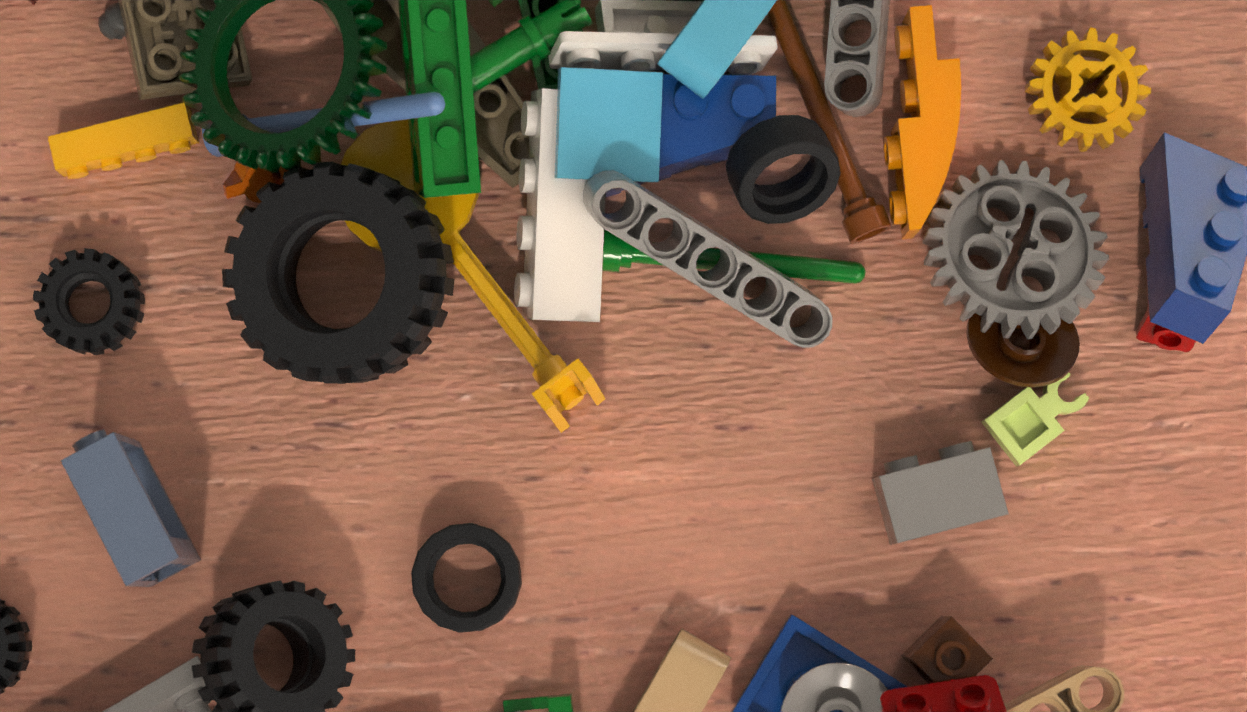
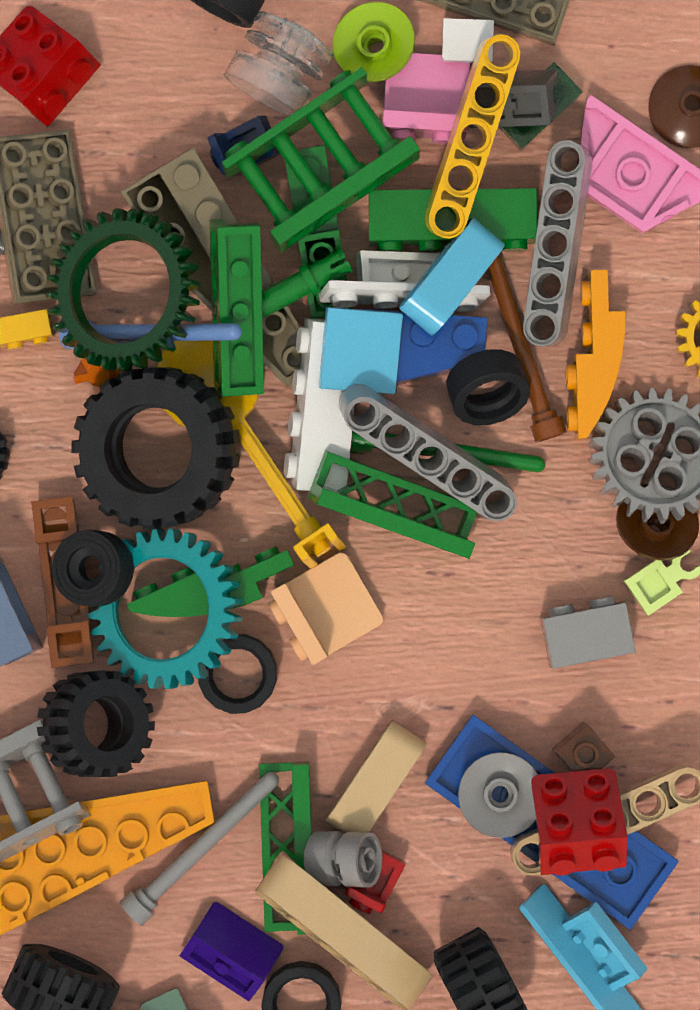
camera: 10 degrees right, 5 degrees up
(224, 466) = (68, 623): none -> dark orange slope
(229, 437) = (70, 562): none -> black tyre
(385, 574) = (193, 662): none -> teal piece
(404, 475) = (188, 596): none -> green slope
(581, 481) = (325, 608): none -> light nougat bracket
(665, 354) = (385, 518): none -> green fence

